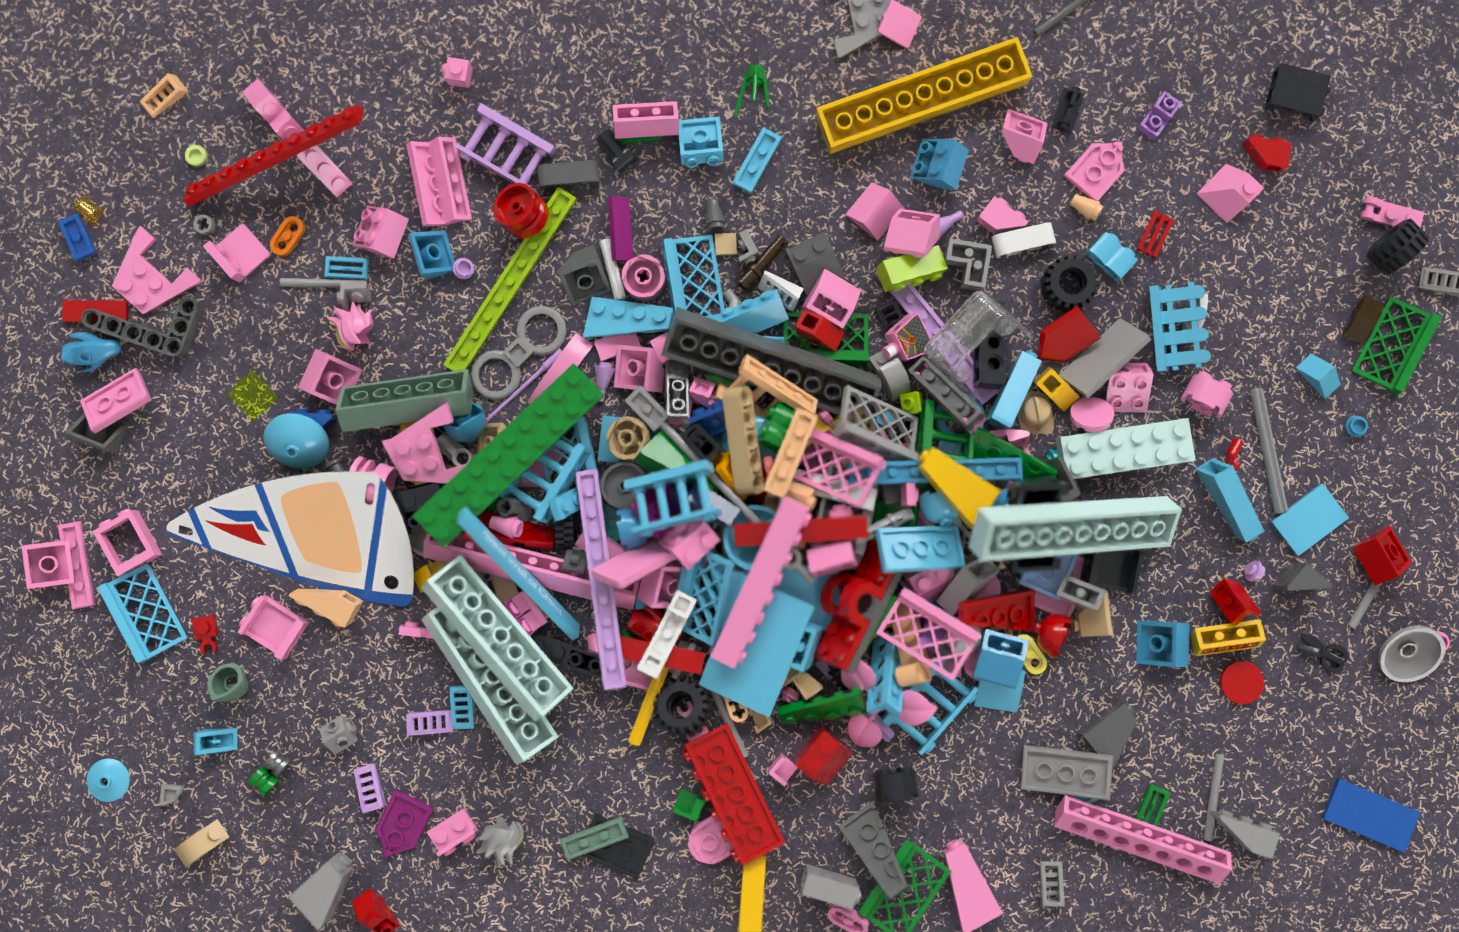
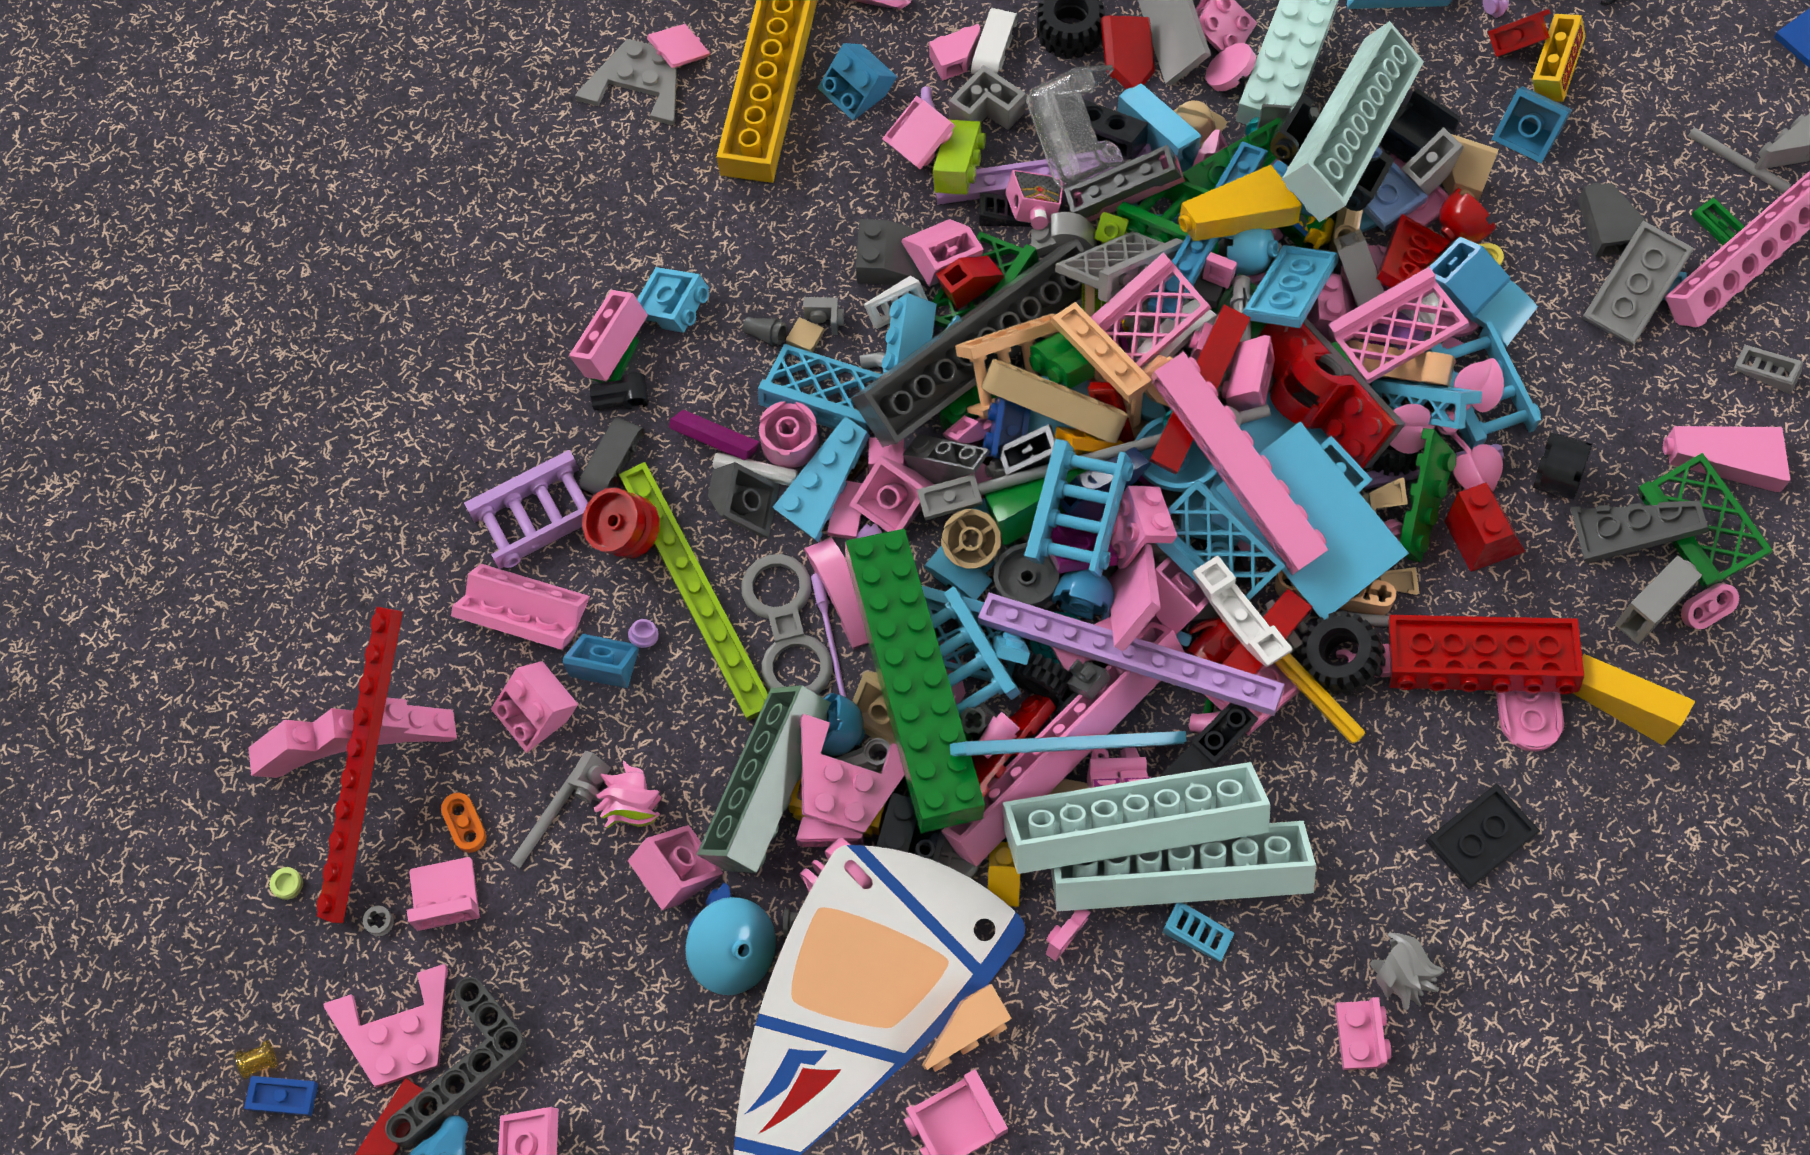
camera: 60 degrees left, 20 degrees down
(174, 95) = (170, 872): light nougat slope -> none
(252, 395) = (633, 982): clear neon green piece -> none
(338, 734) = (1150, 1109): light grey brick -> none
(364, 269) = (535, 795): medium azure tile -> none
(376, 785) = (1260, 1104): lavender slope -> none
(402, 823) = (1316, 1097): magenta tile -> none
(430, 730) = (1185, 1007): lavender slope -> none
(457, 72) = (408, 513): bright pink brick -> none
(594, 838) = (1459, 853): sand green tile -> none
(688, 805) = (1472, 717): green panel -> none
(755, 77) = (638, 210): green plant -> none
(755, 270) = (855, 317): dark brown pin -> none
(757, 160) = (731, 255): medium azure plate -> none
(782, 769) = (1479, 587): bright pink panel -> none
(874, 210) = (866, 167): bright pink slope -> none
(1056, 389) = (1179, 86): yellow slope -> none
(1241, 682) = (1616, 73): red tile -> none

